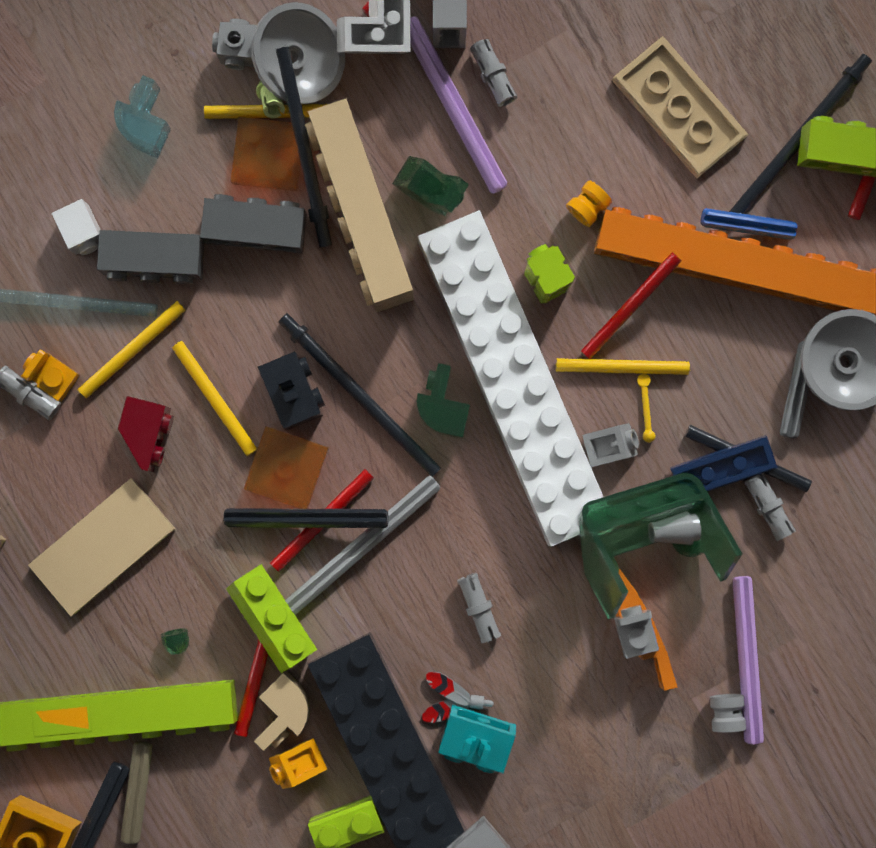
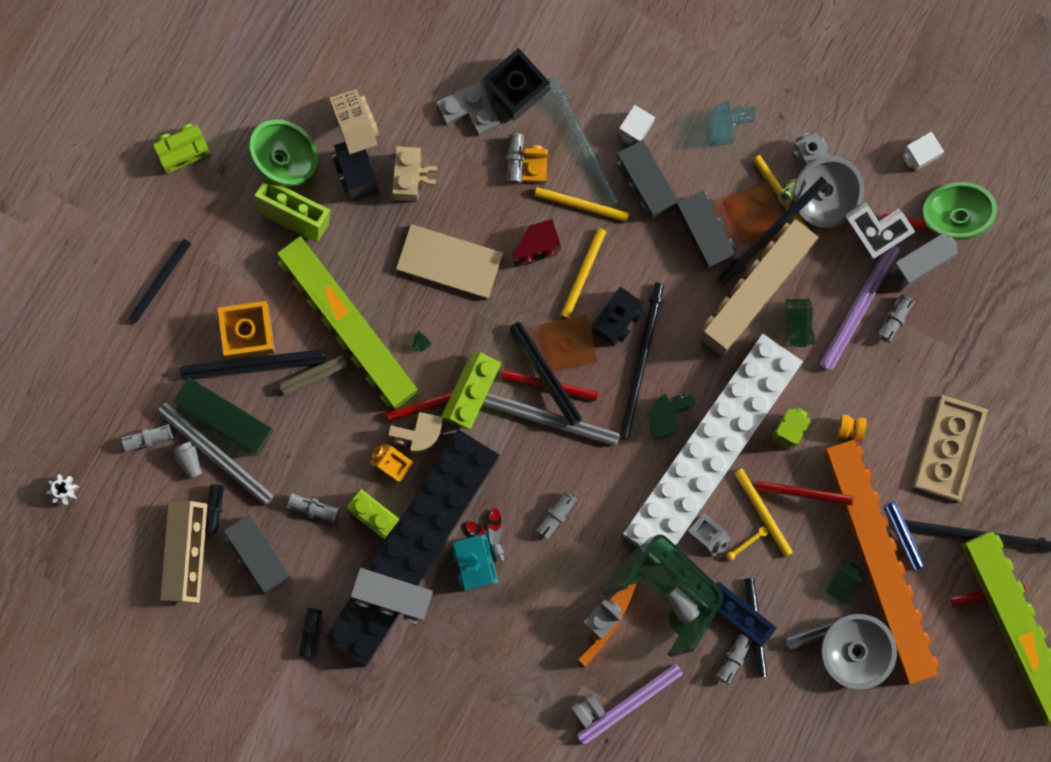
camera: 55 degrees right, 5 degrees down
(759, 323) = (845, 581): none -> clear green bracket

